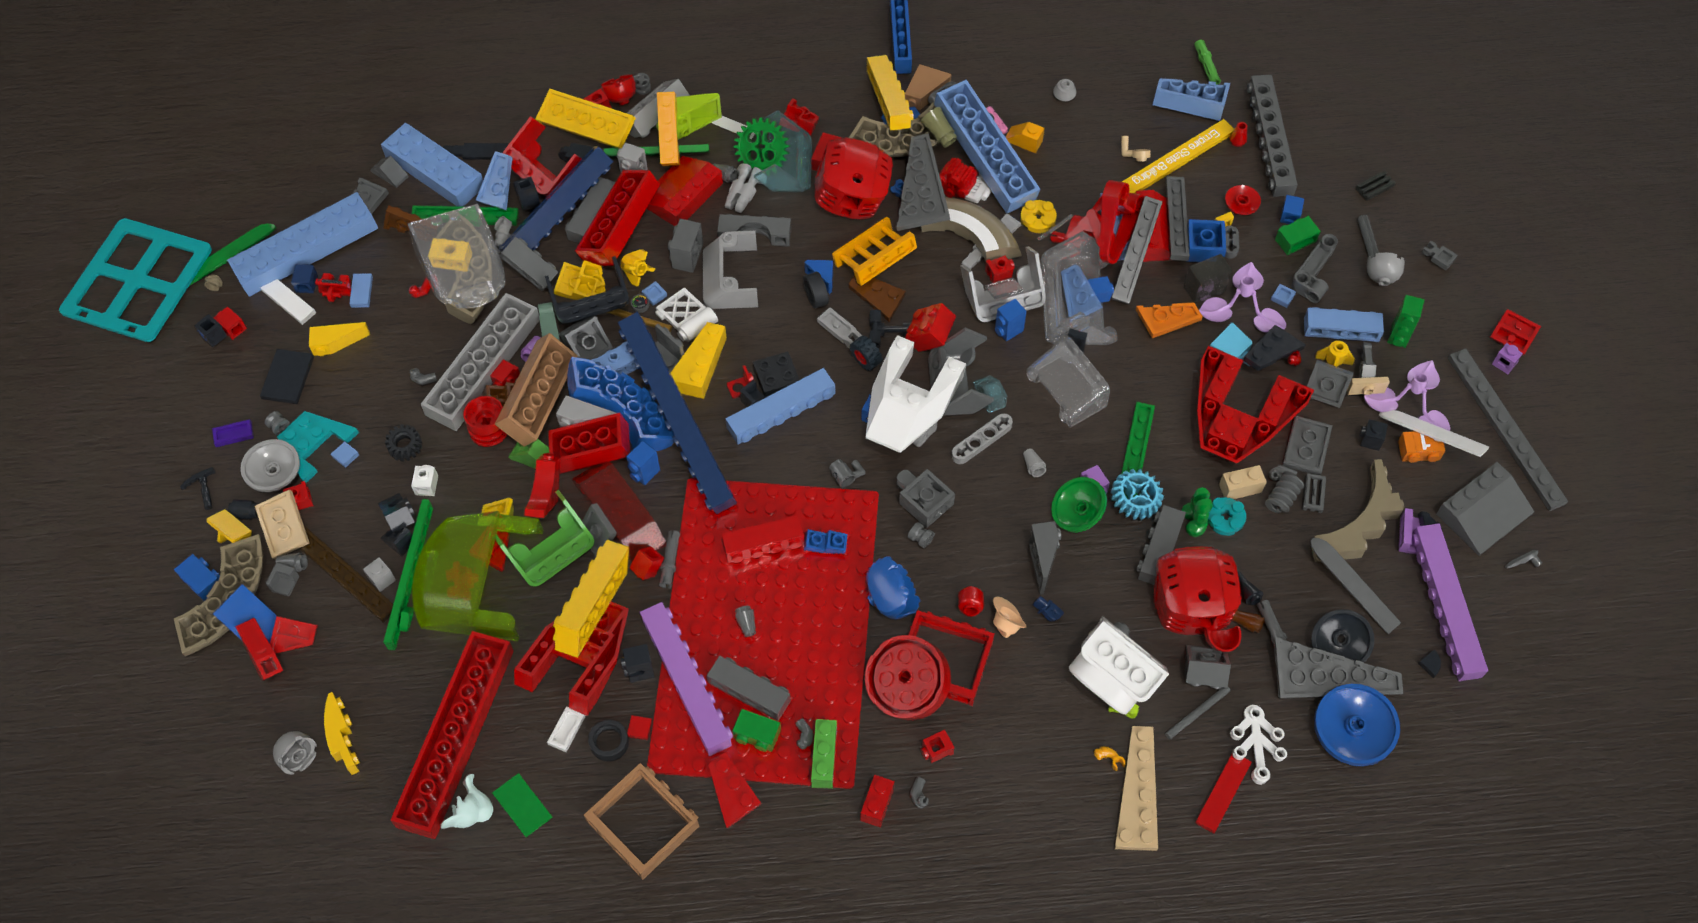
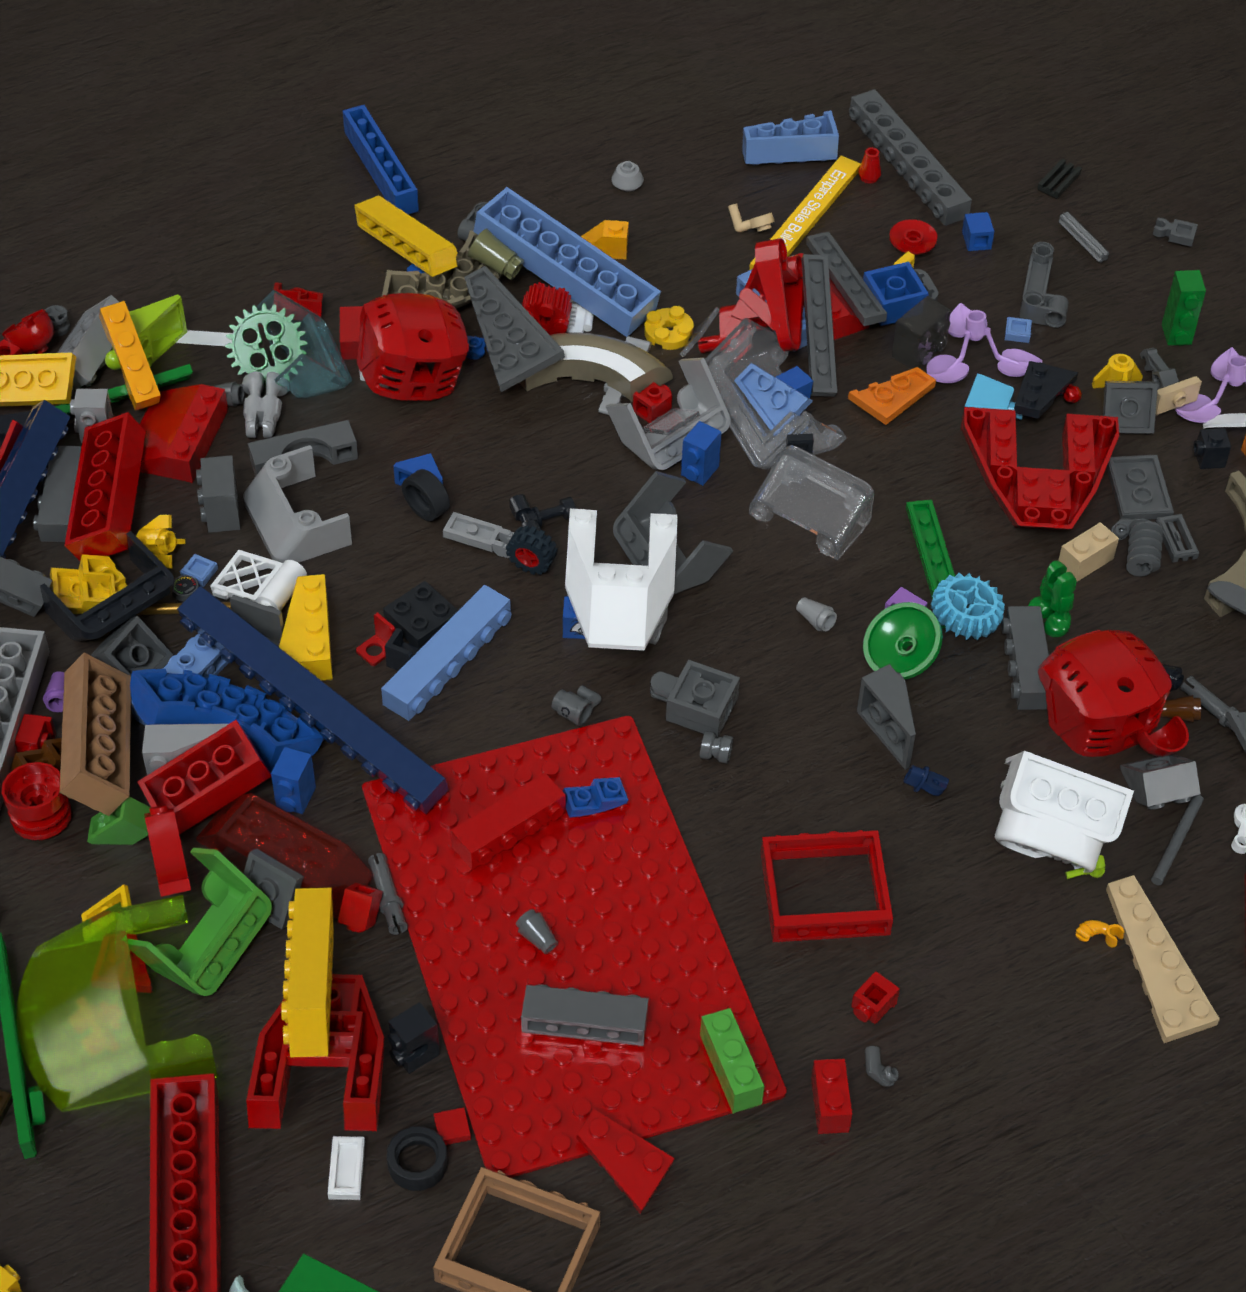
camera: 25 degrees left, 10 degrees down
(548, 320) = (62, 646): sand green leg -> none
(686, 679) = (492, 1035): medium lavender brick -> none
(756, 730) = (623, 1065): green brick -> none
(806, 734) = (693, 1046): dark grey arm -> none
(879, 295) = (505, 478): reddish brown wing -> none
(882, 260) = (489, 441): light orange fence -> none
(891, 589) = (714, 823): blue animal -> none
(923, 84) = (447, 212): medium nougat slope -> none
(928, 680) = (800, 953): red brick -> none
(930, 327) = (604, 488): red brick -> none
(971, 601) = (823, 804): red head -> none
(982, 438) = (733, 607): light grey beam -> none
(992, 387) = (723, 537): clear light blue slope -> none
(1007, 617) = (881, 812): light nougat piece -> none
(1205, 57) = (781, 94): bright green pin -> none
(1231, 507) = (1101, 596): teal plate -> none
(1297, 235) = (999, 257): green brick -> none
(1343, 324) = (1109, 337): medium blue brick -> none
(1385, 268) = (1123, 260): light grey cylinder -> none

